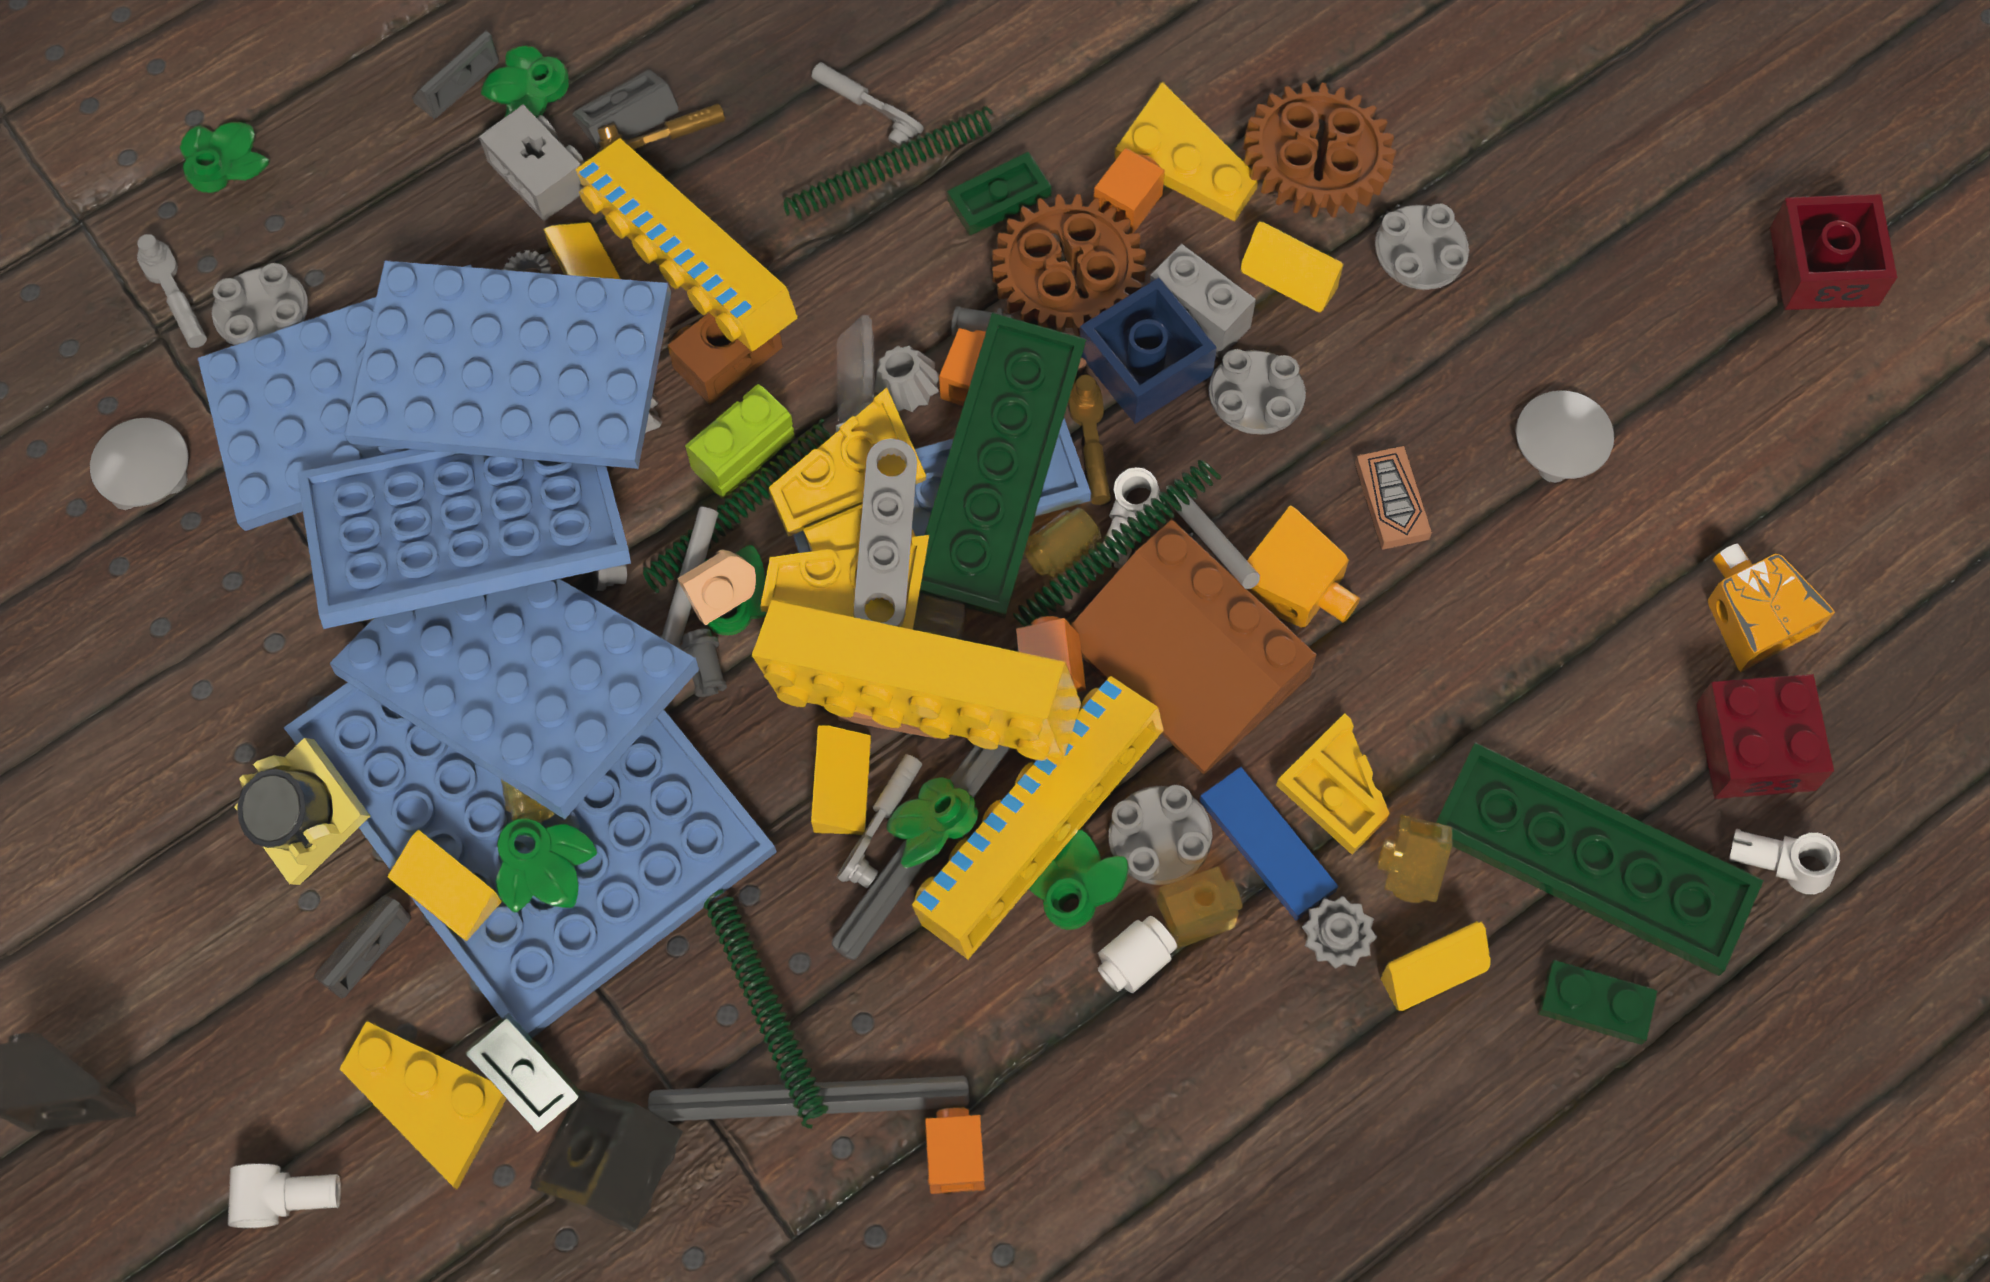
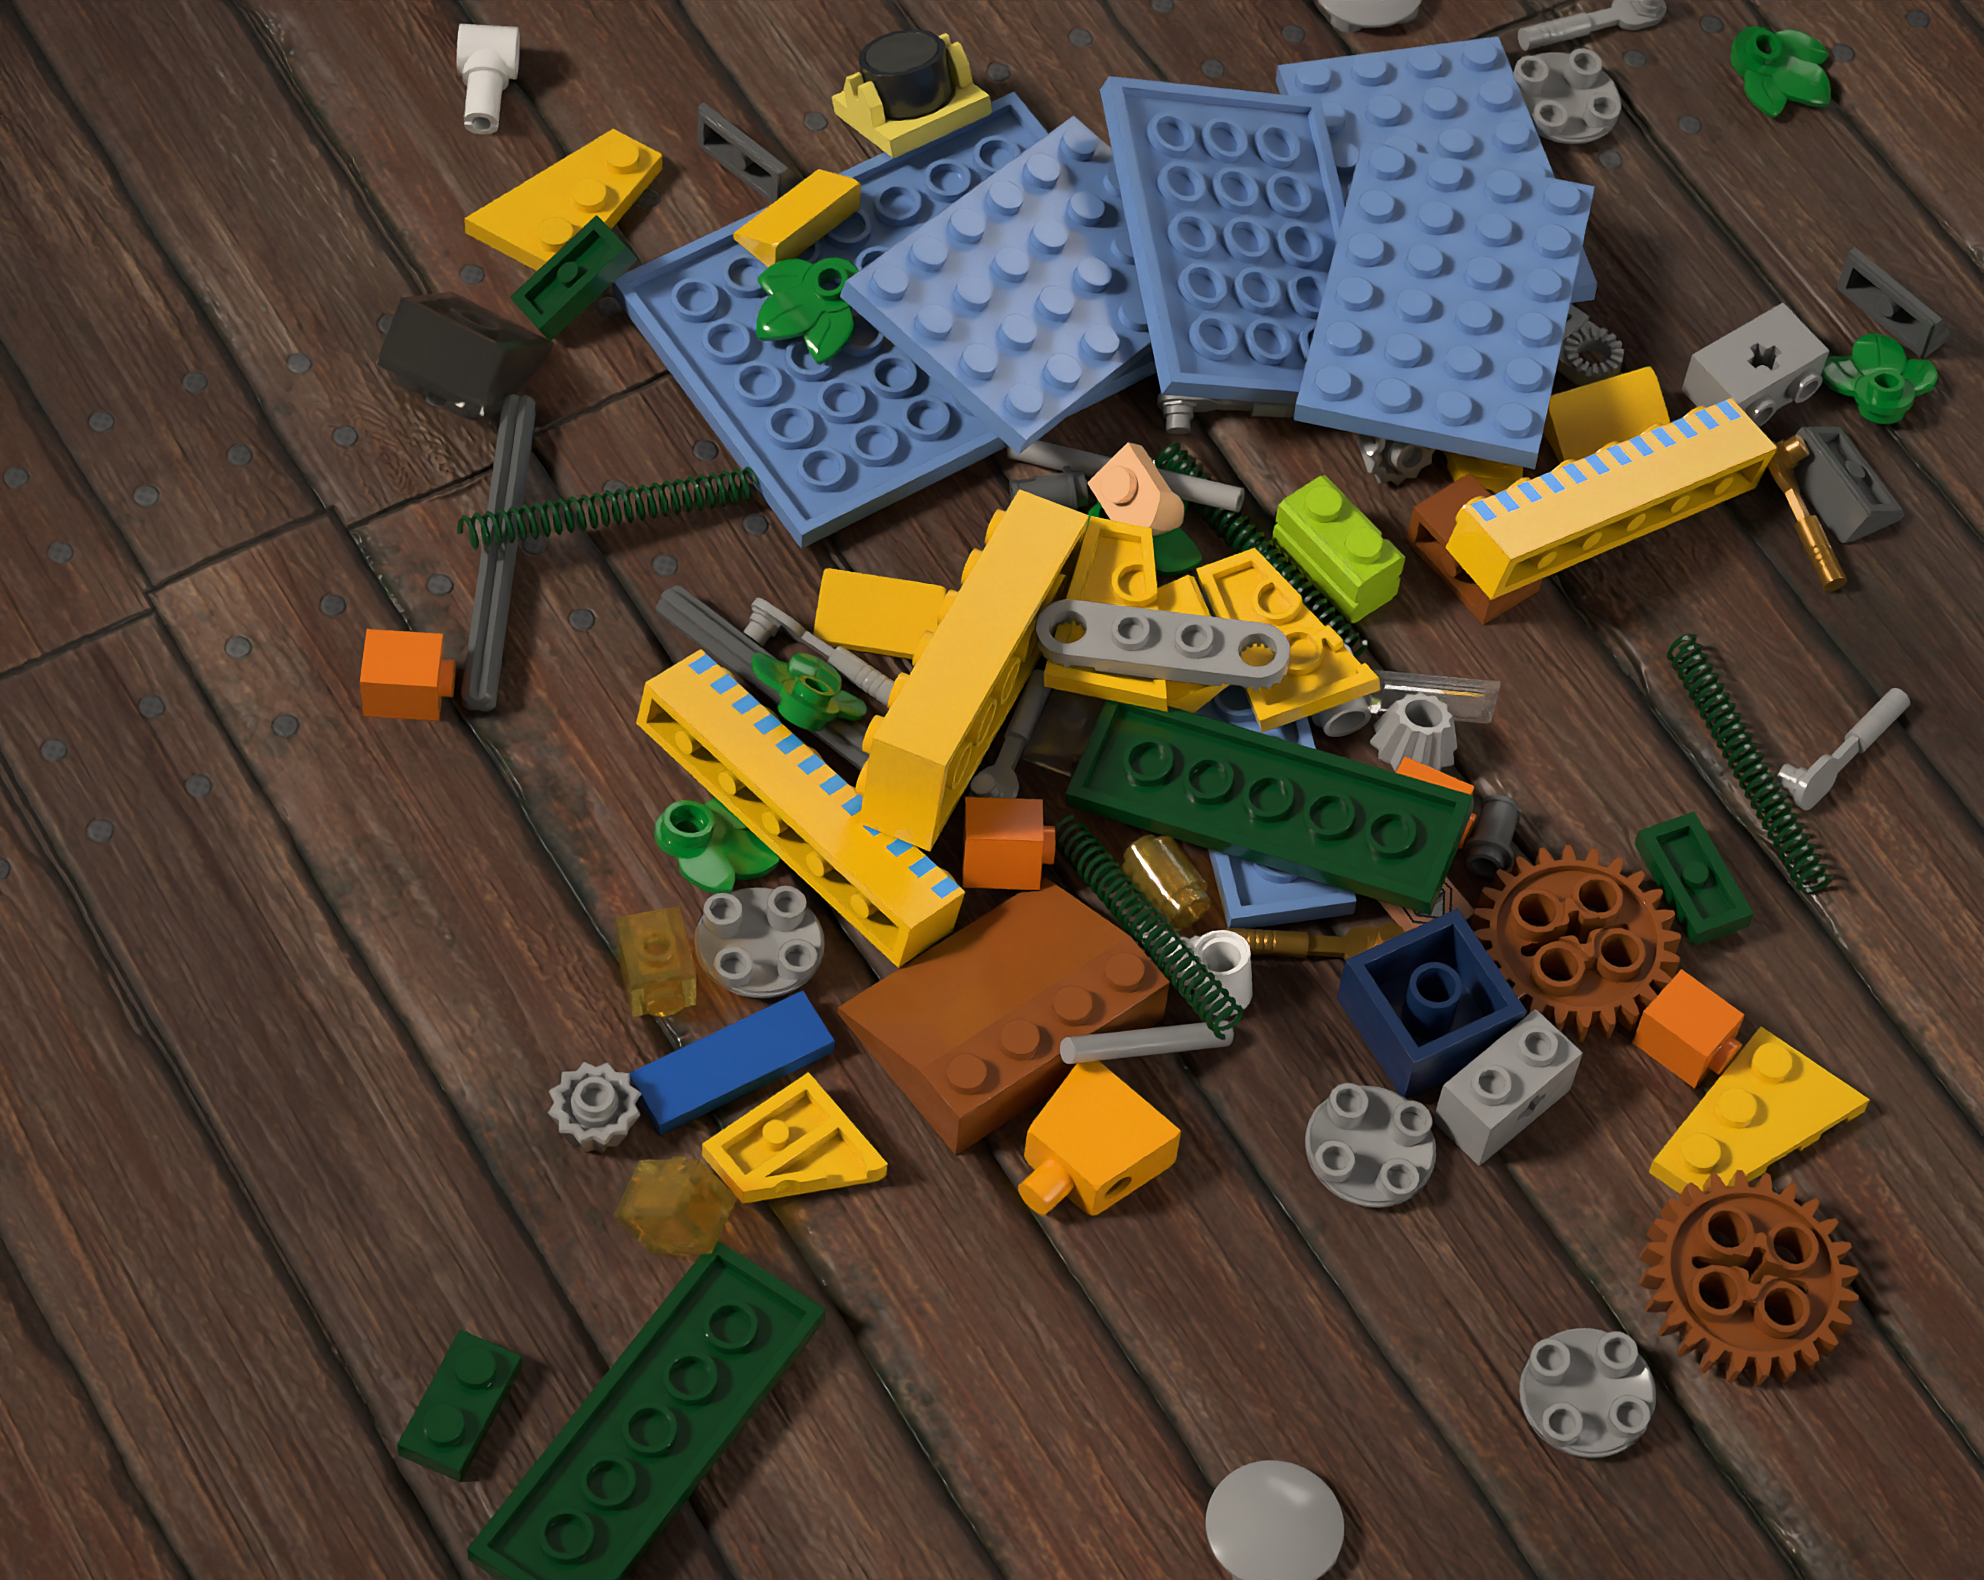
camera: 90 degrees right, 10 degrees down
(1136, 955) = (605, 884): white brick -> none
(1291, 267) = (1559, 1218): yellow slope -> none
(1393, 497) = (1198, 1289): tile -> none
(1437, 966) = (537, 1221): yellow slope -> none

